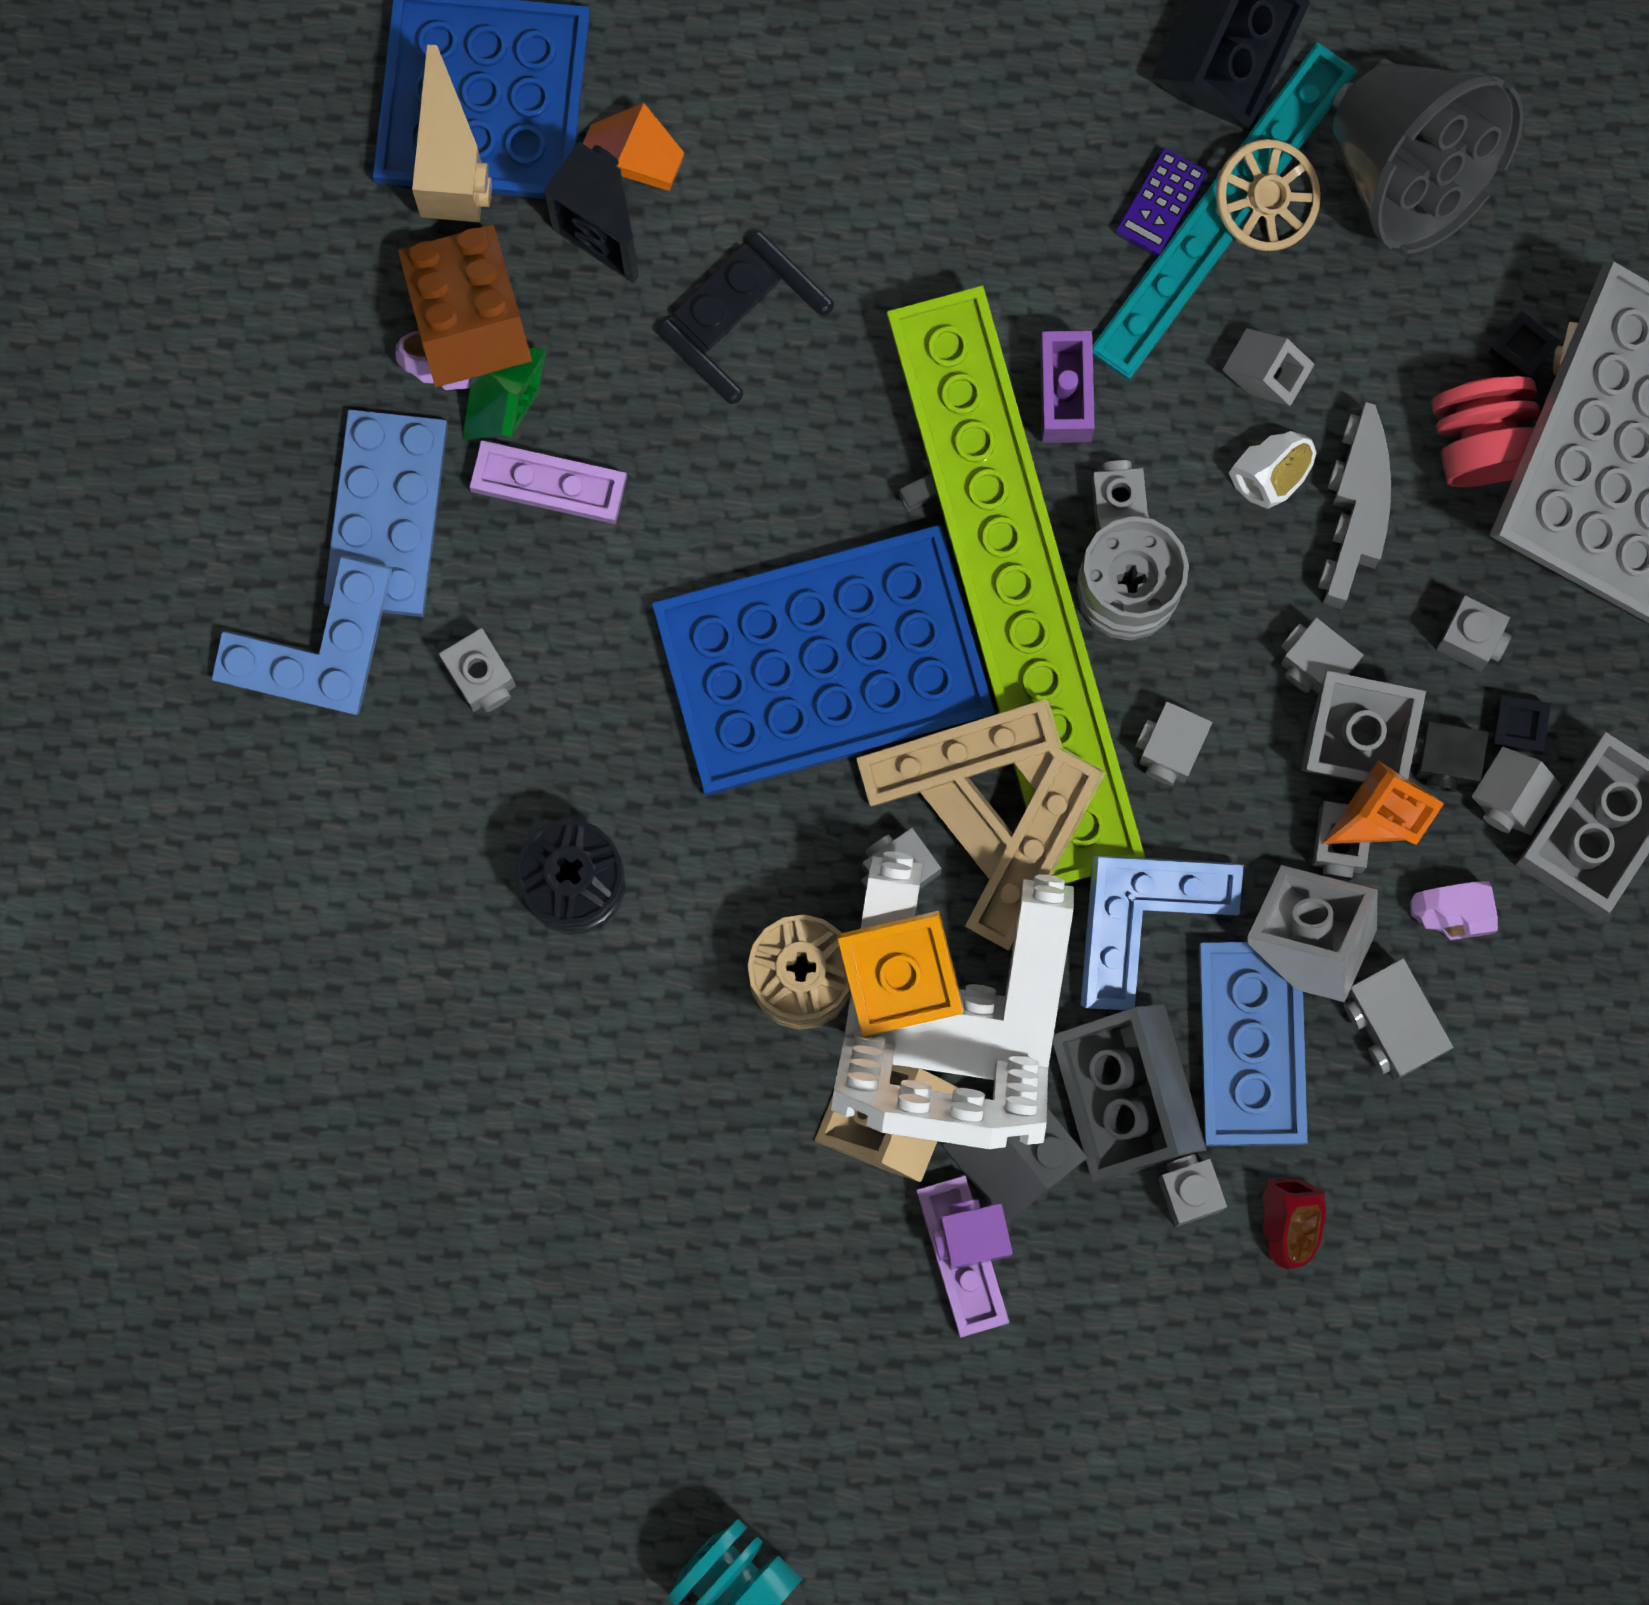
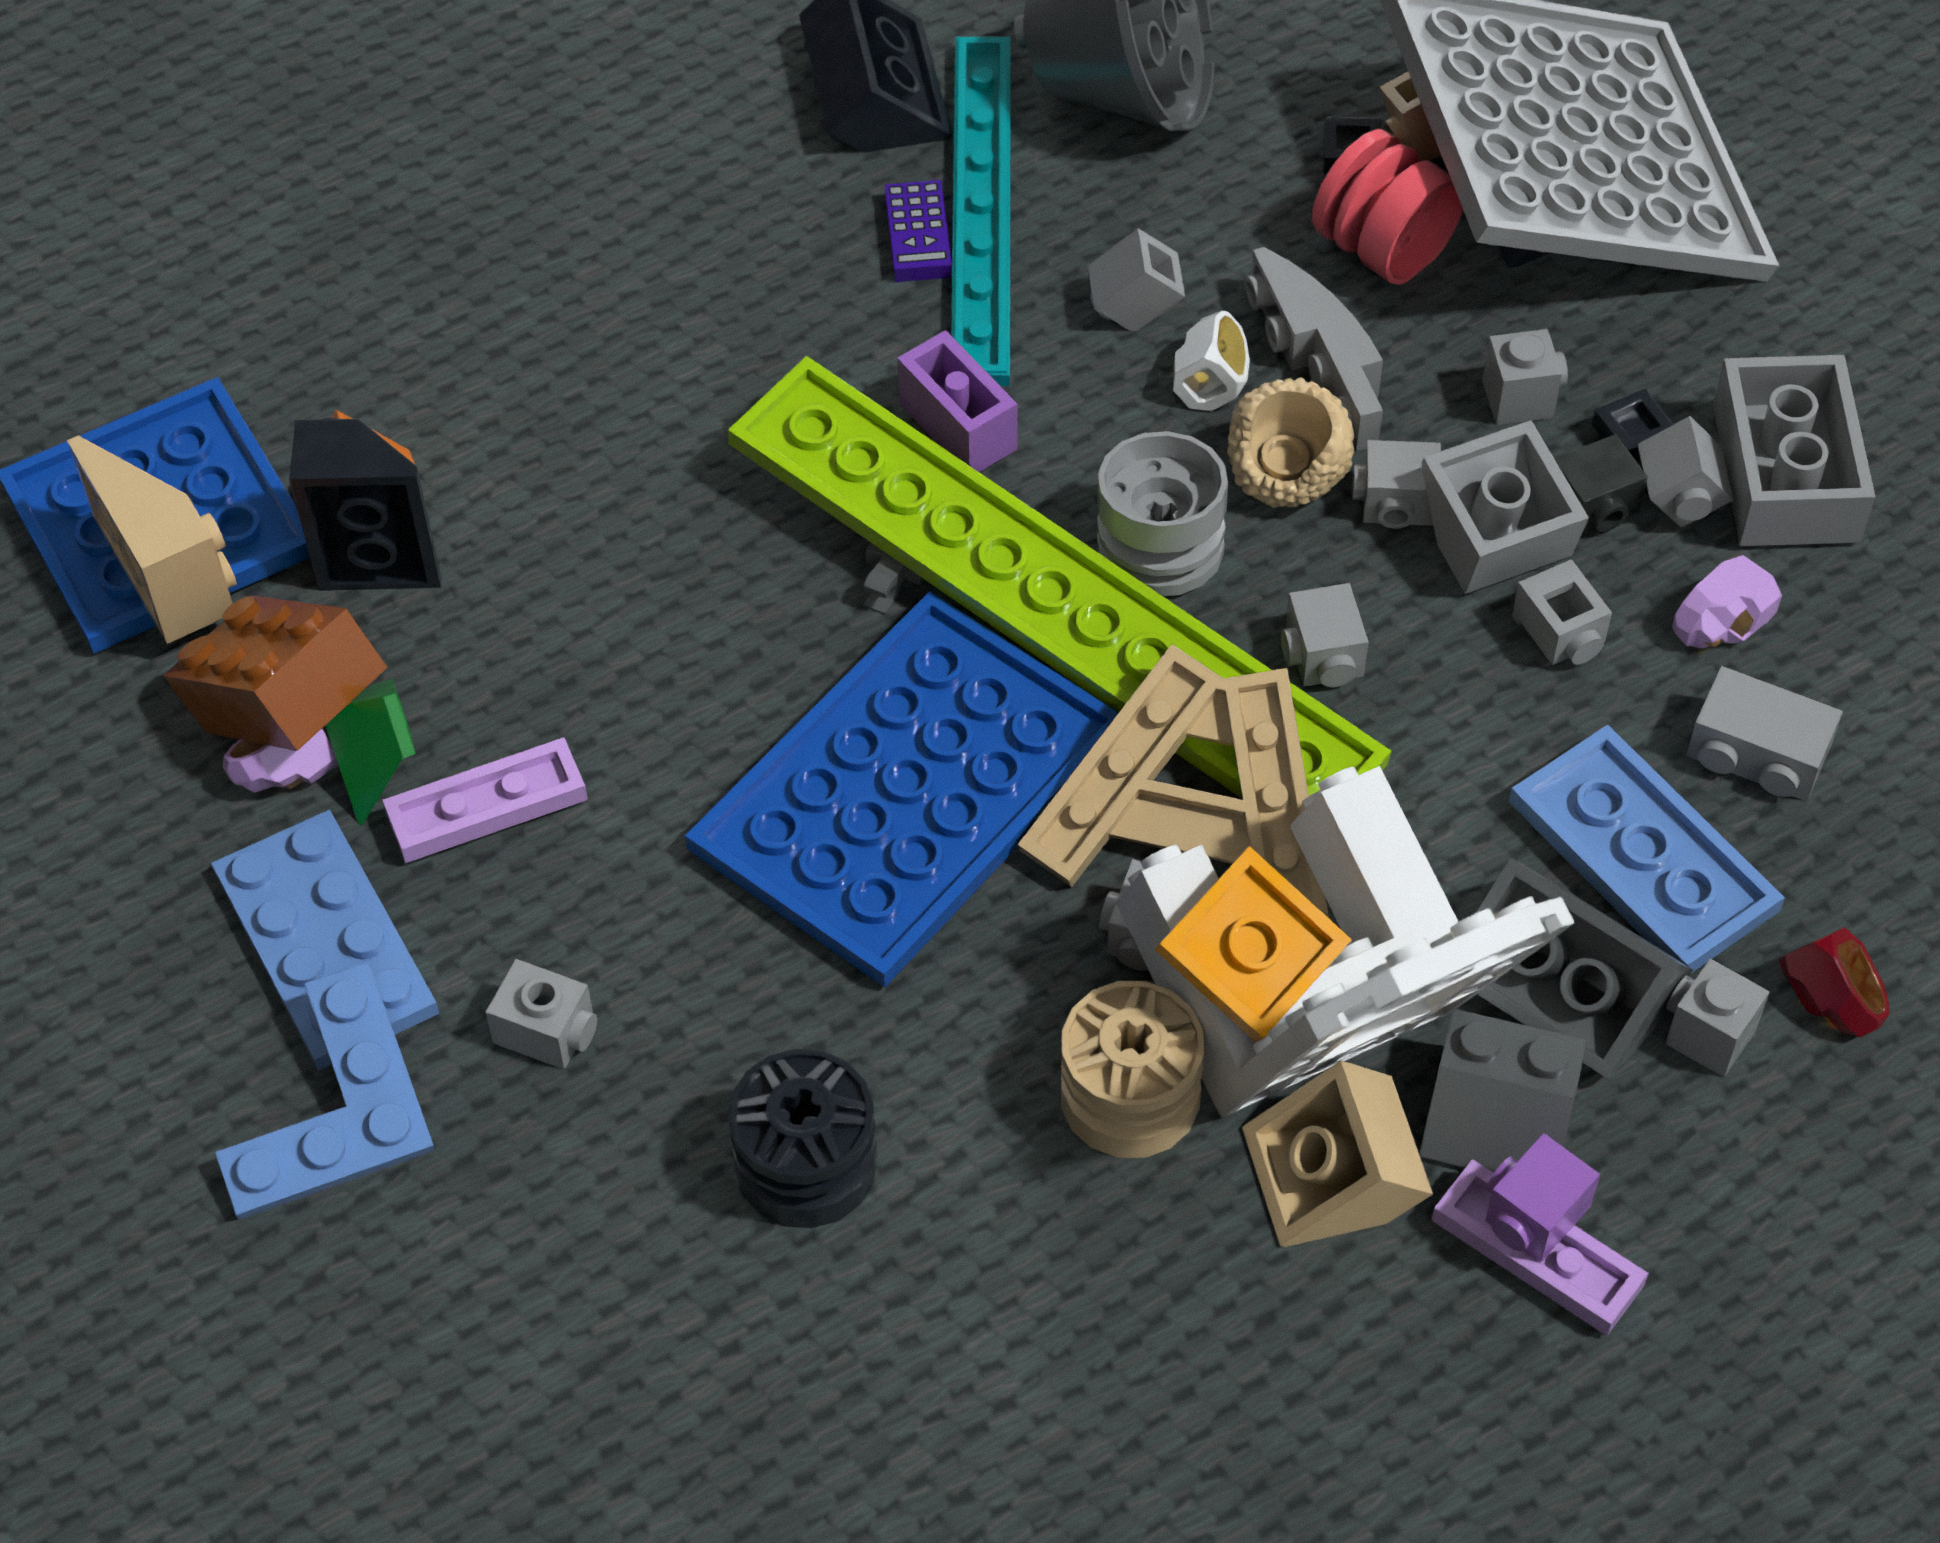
camera: 35 degrees left, 25 degrees down
(727, 299) = (551, 542): black plate -> none
(1116, 905) = (1430, 760): plate -> none
(1118, 475) = (1073, 469): light grey brick -> none
(1263, 581) = (1289, 442): none -> tan hair
(1266, 195) = (1013, 162): tan wheel -> none
(1315, 931) = (1621, 692): light grey slope -> none
(1385, 810) = (1587, 536): orange slope -> none

